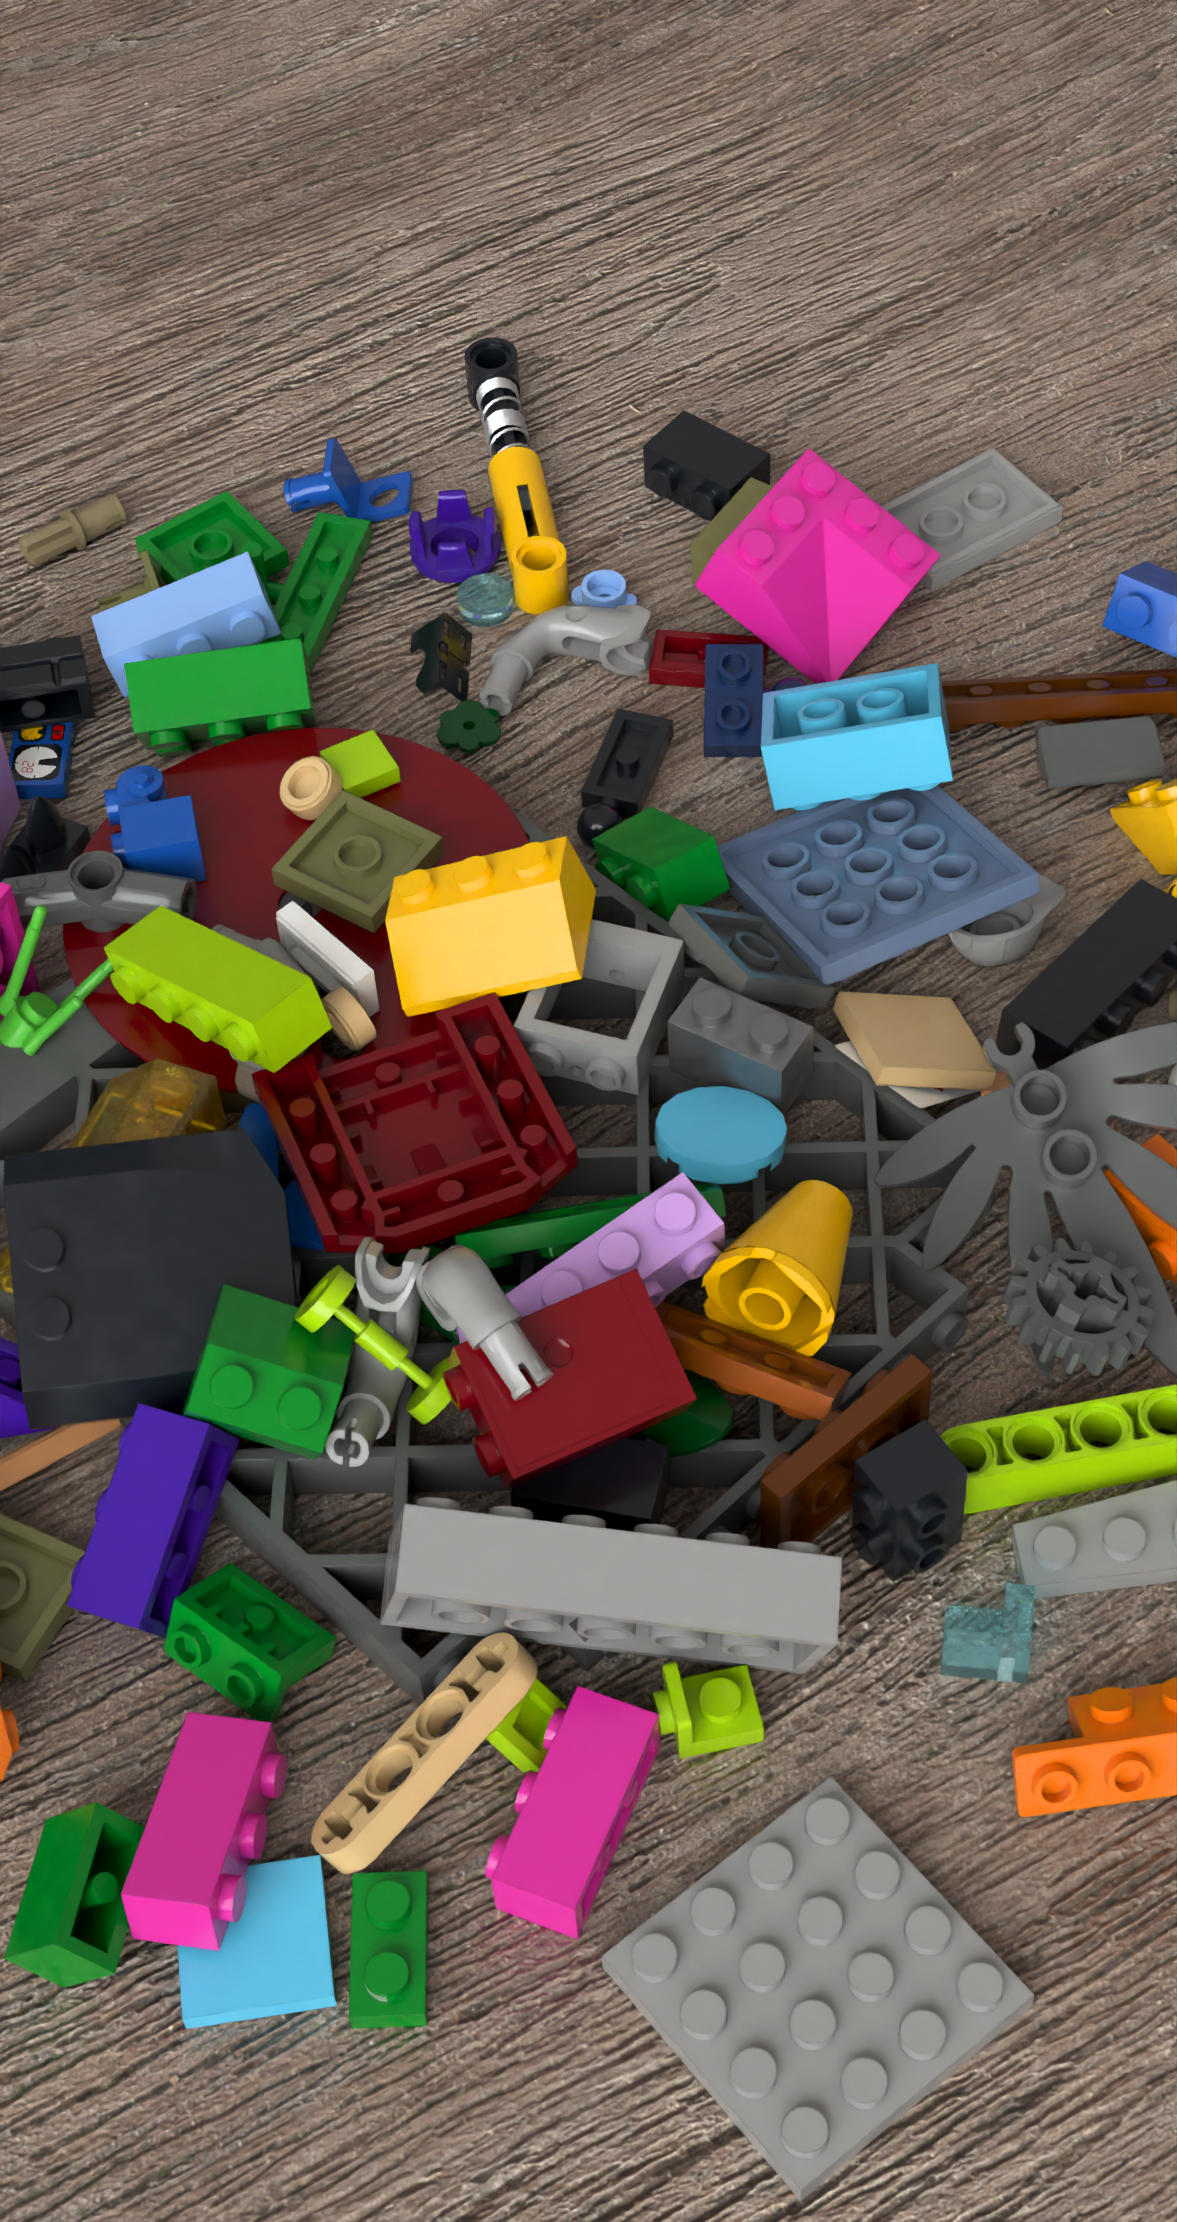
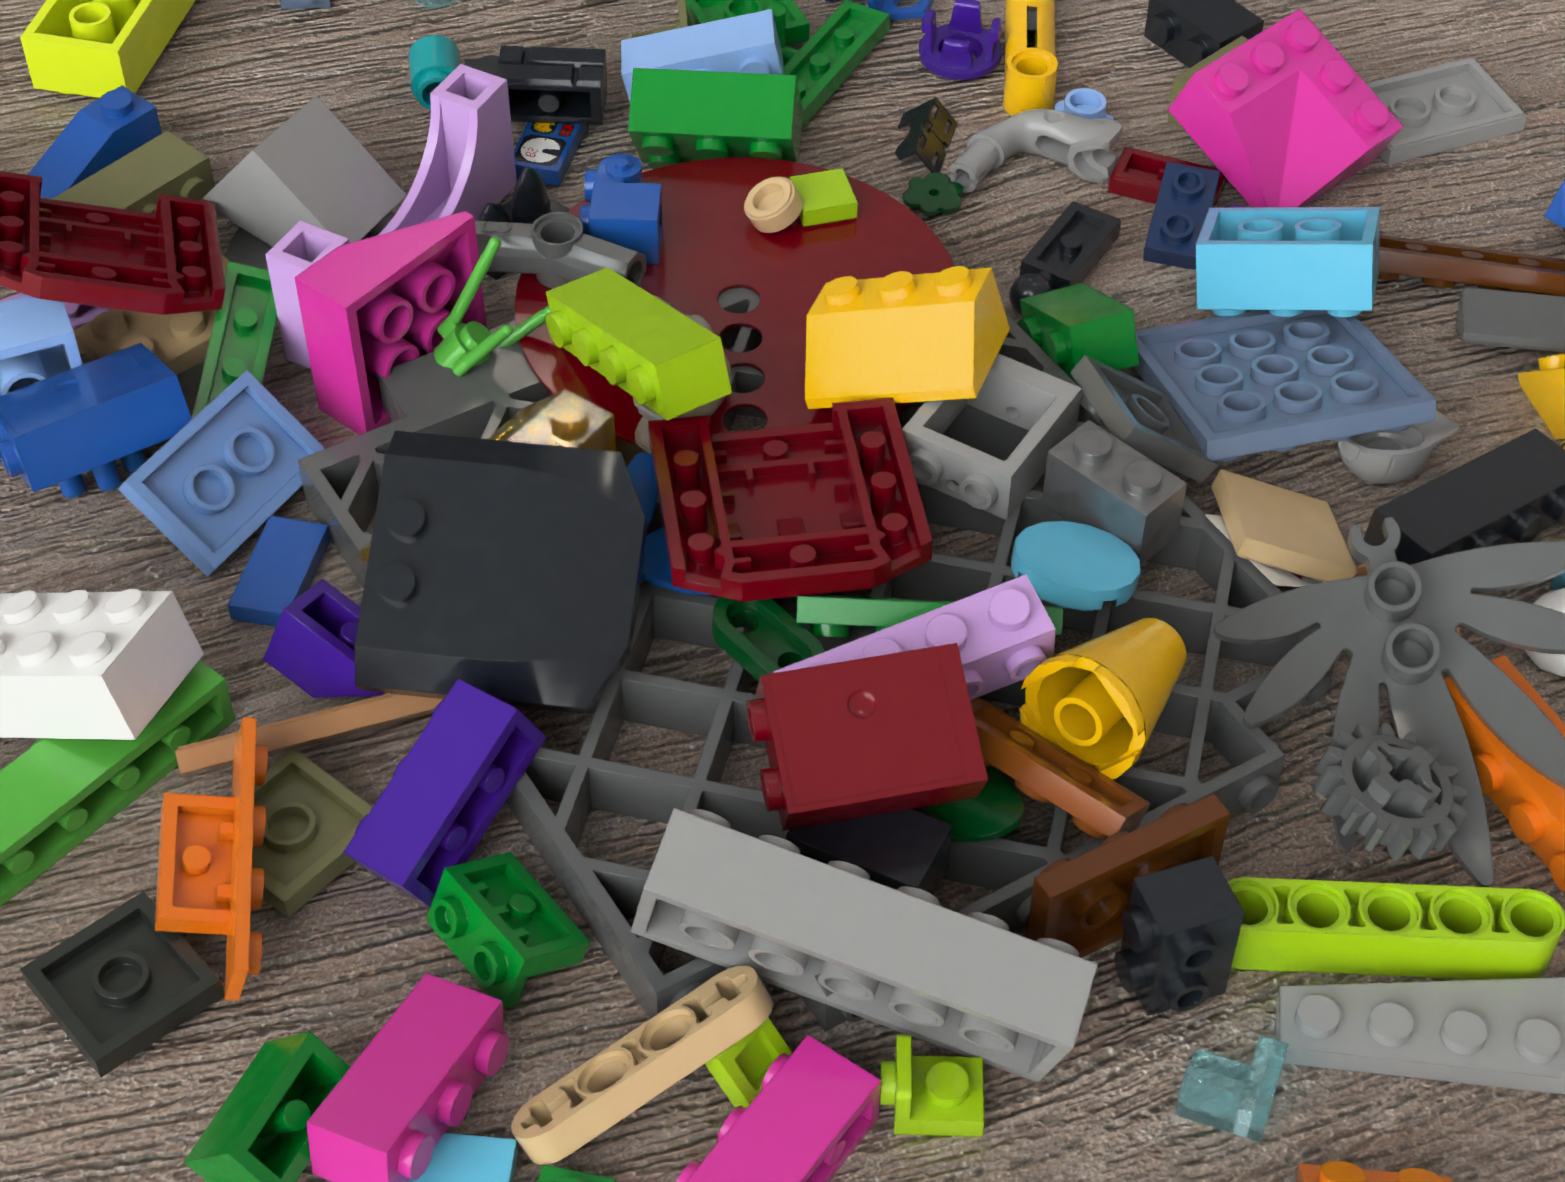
camera: 10 degrees right, 5 degrees down
(269, 1374) = (587, 678): green slope -> none
(325, 957) = (748, 346): white tile -> none
(327, 1300) = (694, 670): lime wheel -> none
(348, 1019) = (751, 397): tan tile -> none
(352, 857) = (790, 265): olive plate -> none
(393, 1302) = (704, 682): light grey piece -> none
(467, 1296) = (790, 643): light grey piece -> none
(485, 600) = (976, 97): clear light blue tile -> none

